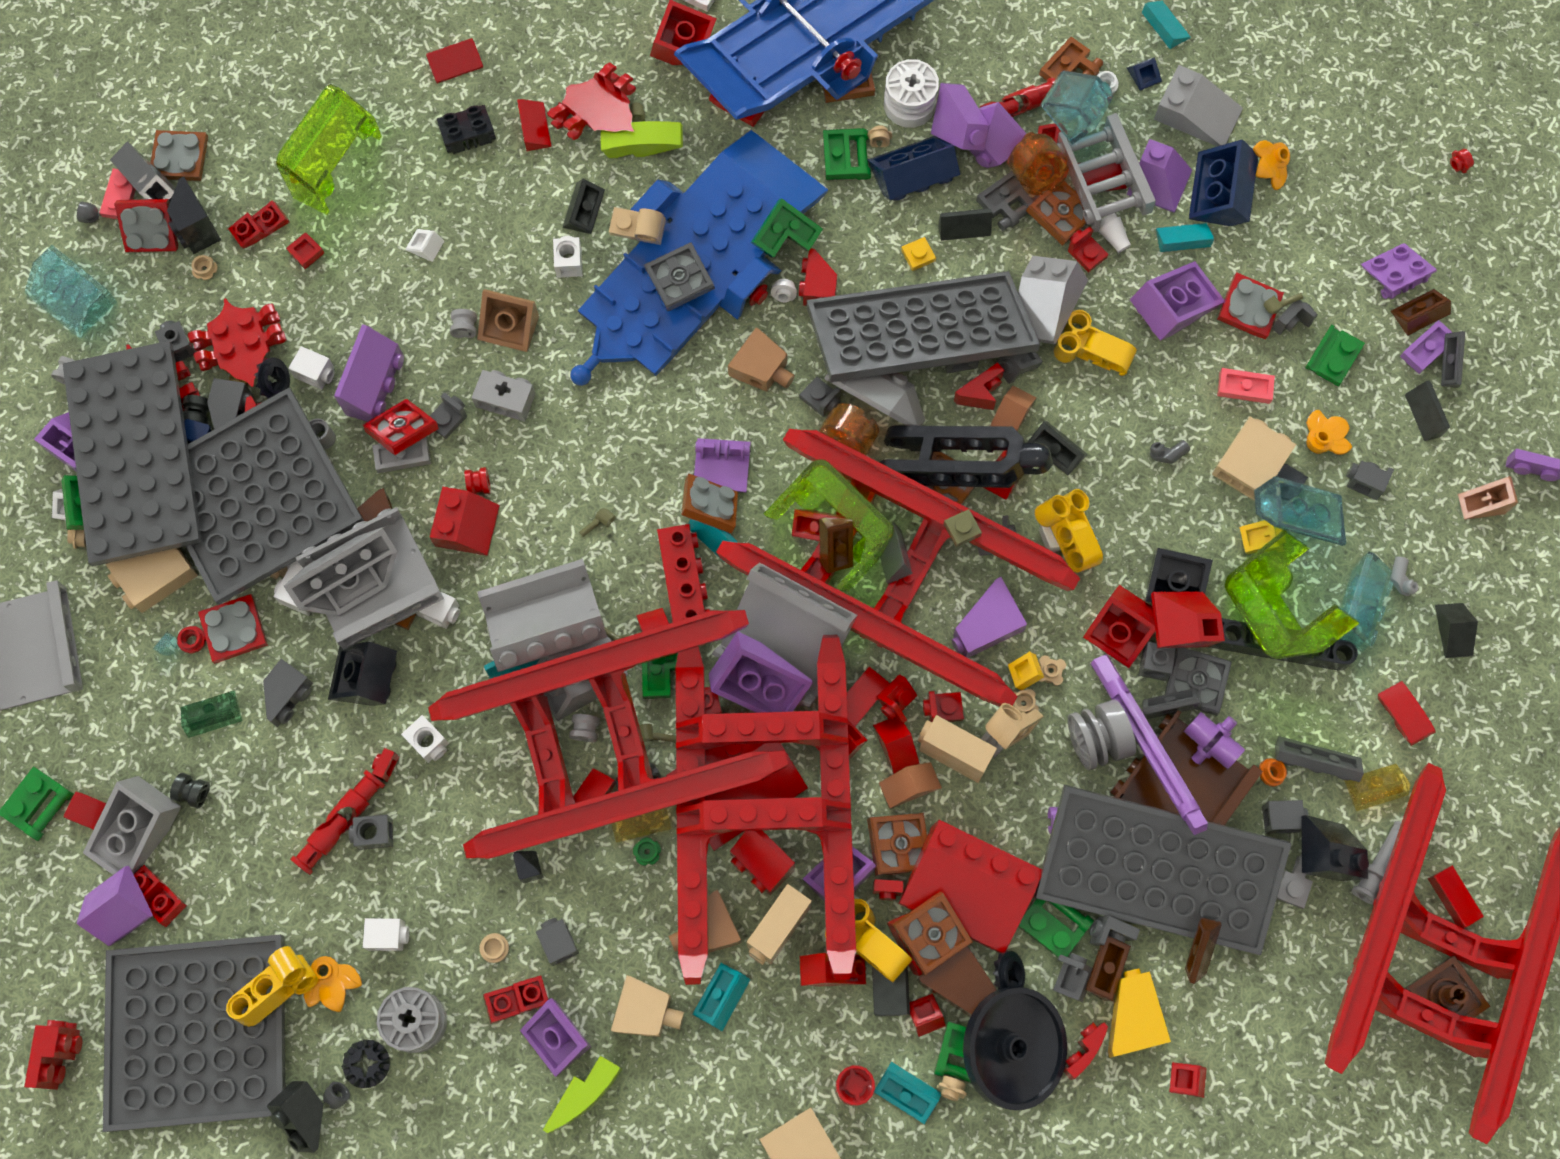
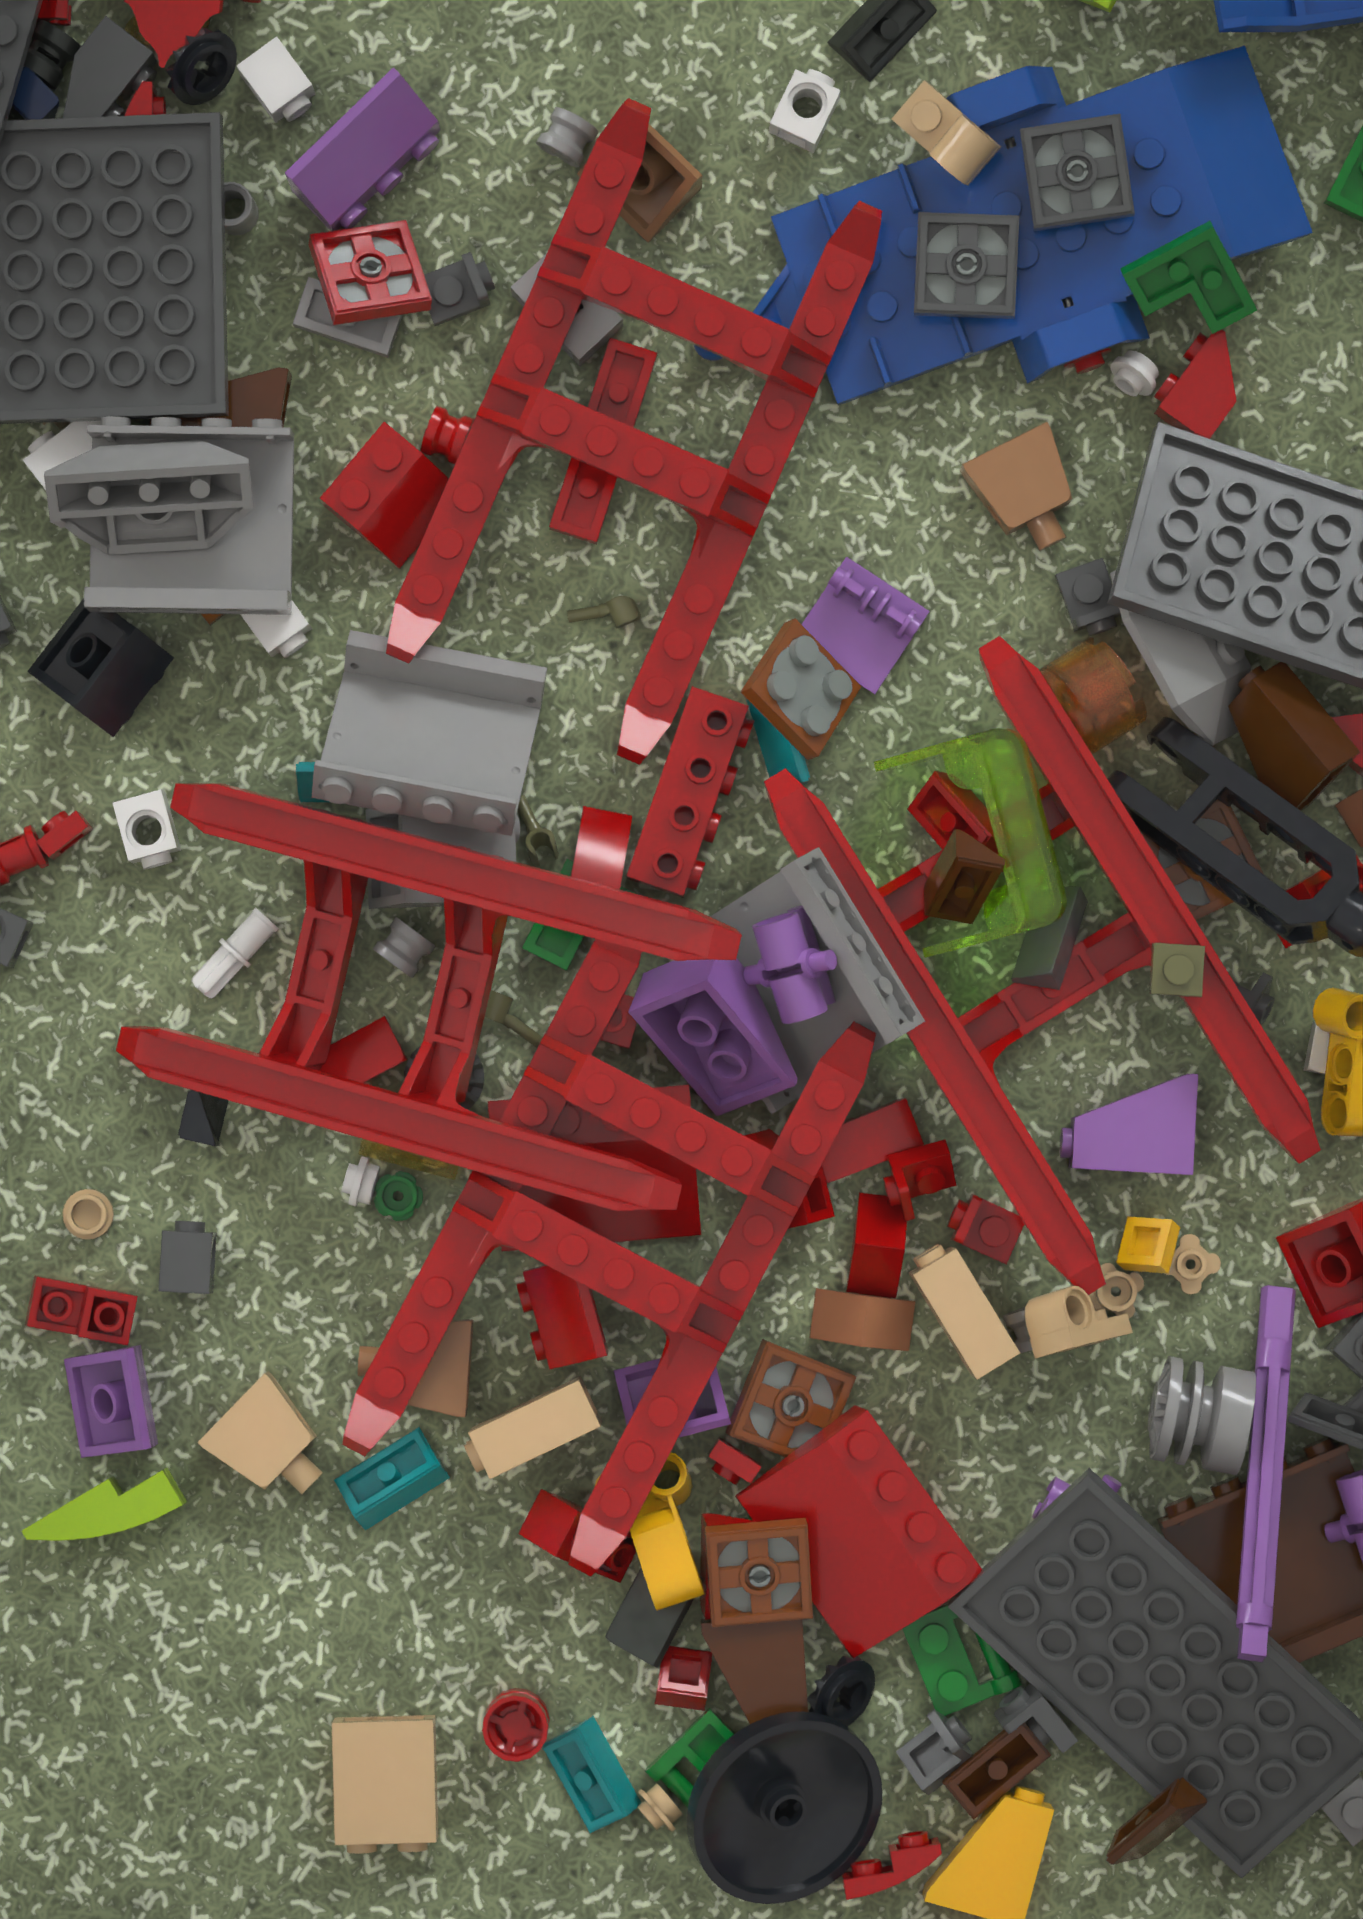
camera: 25 degrees right, 15 degrees up
(501, 777) = (233, 954): none -> white axle
(510, 441) = (525, 414): none -> red piece
(553, 446) = (619, 395): none -> red plate
(624, 853) = (360, 1181): none -> white plate
(706, 211) = (1077, 172): none -> dark grey piece
(778, 623) = (792, 966): none -> medium lavender pin
(949, 400) = (1289, 735): none -> reddish brown slope

